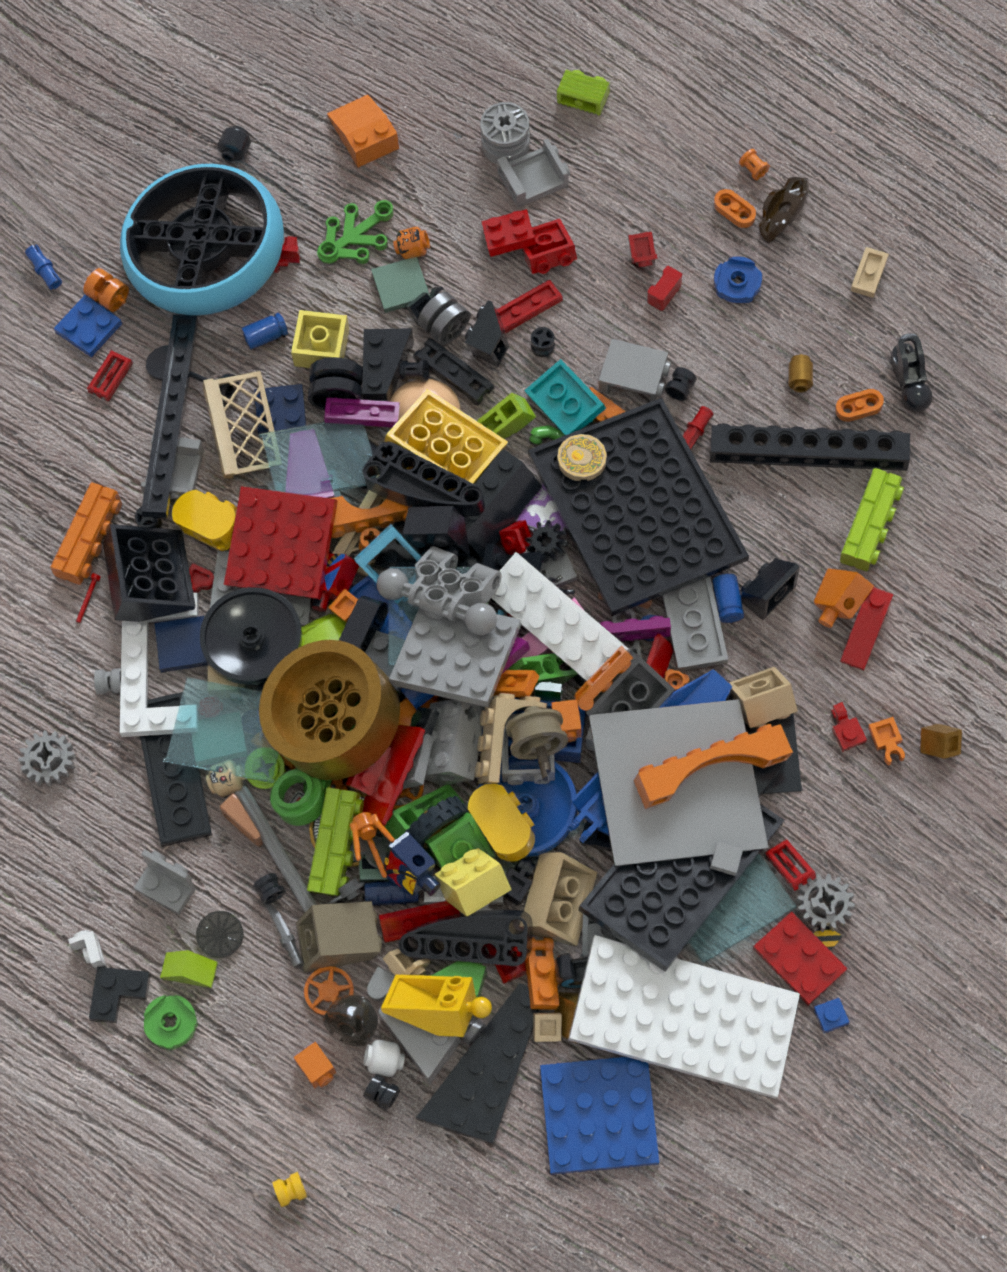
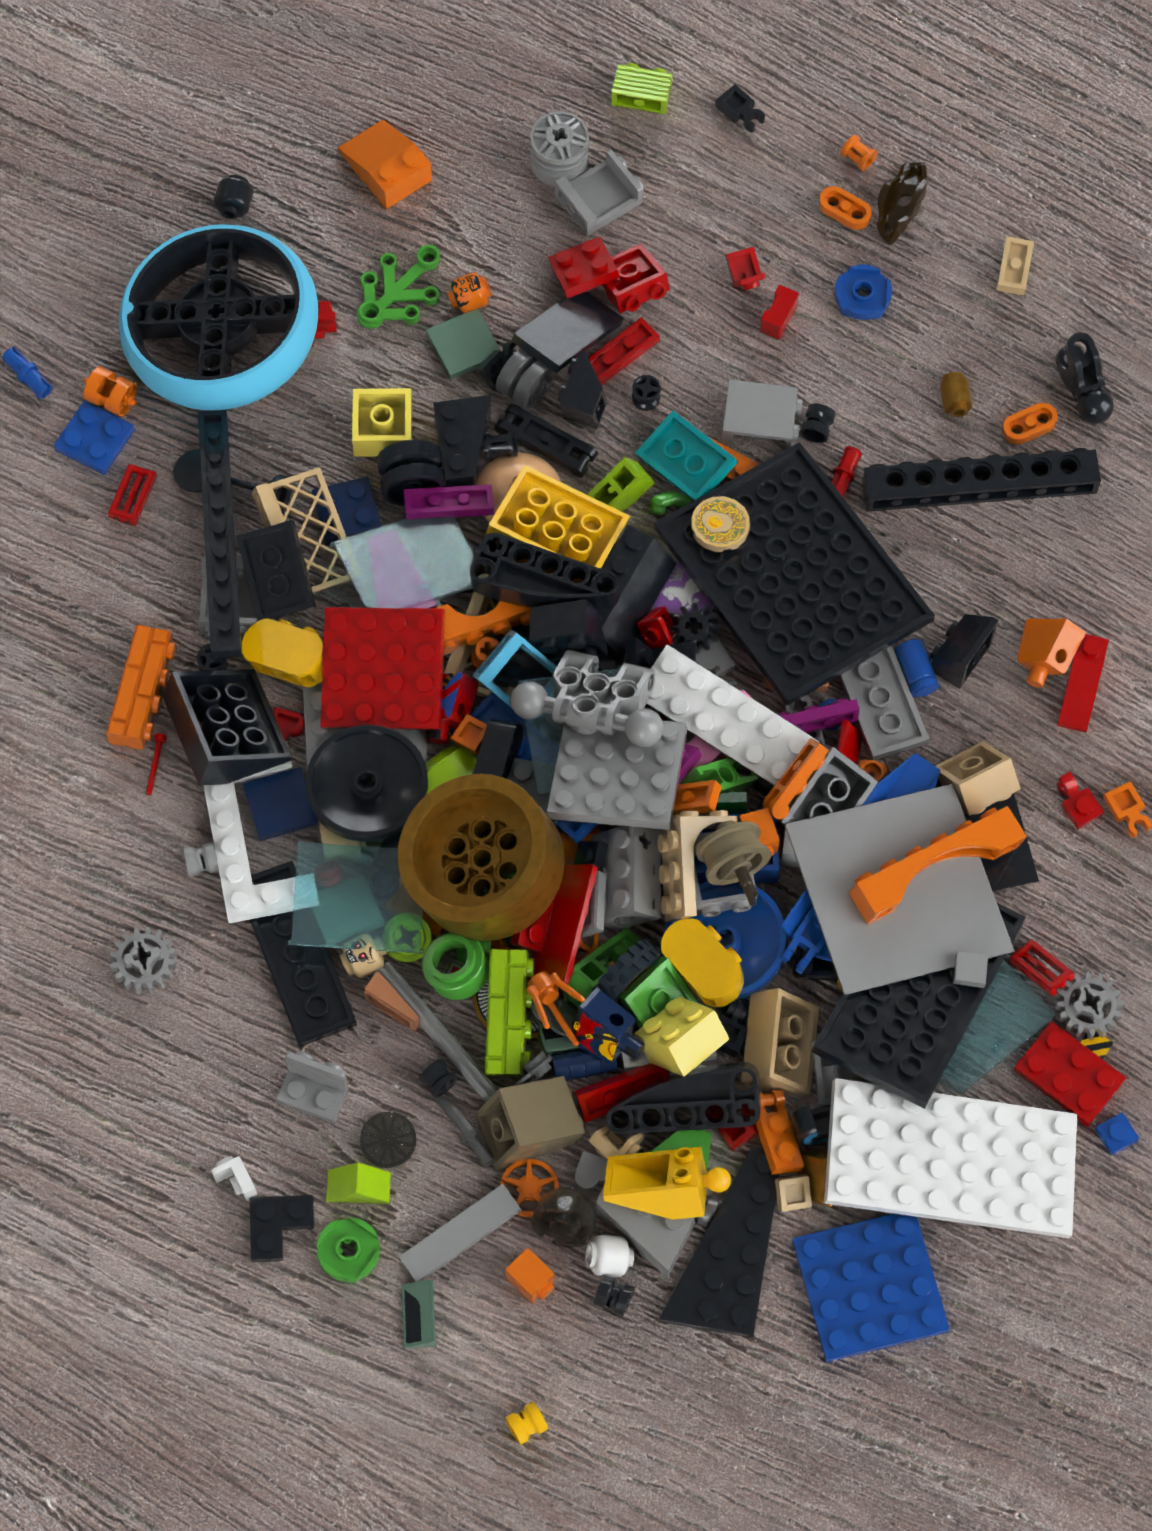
camera: 15 degrees left, 0 degrees up
(209, 451) = (276, 571): none -> black plate
(218, 1084) = (419, 1314): none -> sand green slope
(264, 331) = (311, 418): blue piece -> none
(264, 1021) = (460, 1233): none -> light grey tile
(484, 280) = (567, 329): none -> tile
(661, 114) = (738, 105): none -> black plate
(870, 520) = (1066, 556): lime brick -> none

